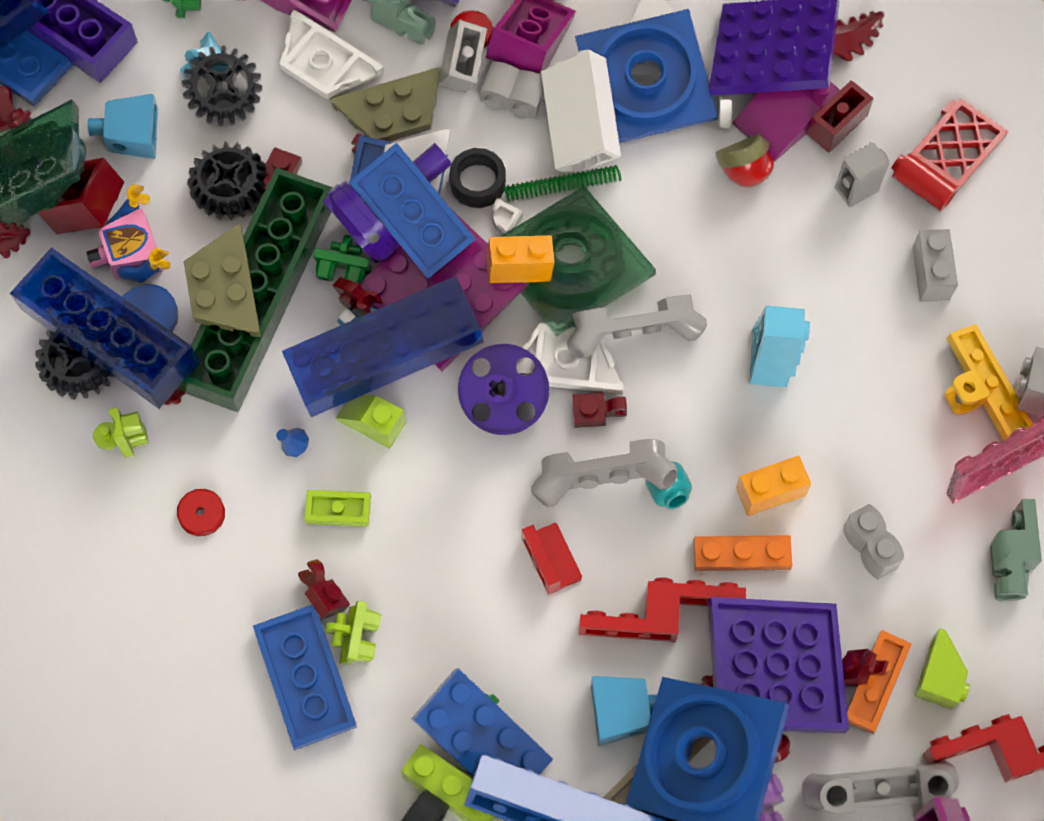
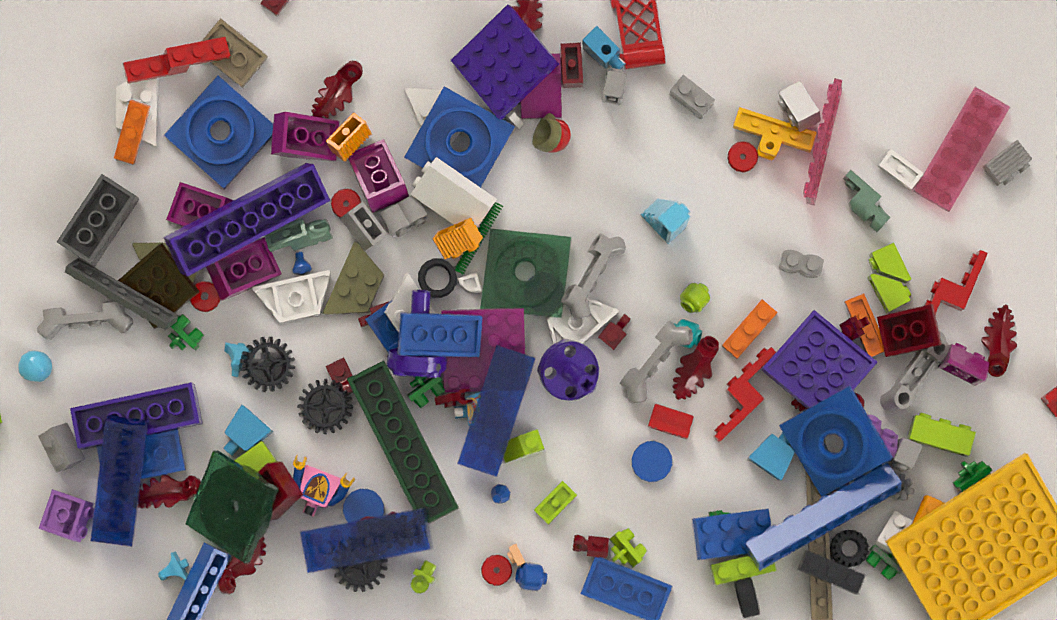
camera: 45 degrees left, 15 degrees up
(116, 153) = (257, 457): none -> lime slope
(222, 284) = (392, 462): olive wing -> none
(224, 553) = (531, 576): none -> blue head
(236, 515) = (515, 555): none -> light nougat plate
(363, 38) = (301, 265): none -> blue rock
(485, 576) = (651, 461): none -> blue tile
(520, 259) = (513, 304): light orange brick -> none
(539, 155) = (457, 239): none -> light orange brick
(640, 531) = (696, 367): none -> dark red plant
(718, 458) = (694, 297): none -> lime head
(773, 485) = (732, 284): light orange brick -> none
(887, 133) = (597, 43): none -> dark azure torso
(921, 729) = (909, 330): none -> dark red slope
(934, 370) = (746, 149): none -> red piece
(975, 641) = (889, 263): none -> lime slope

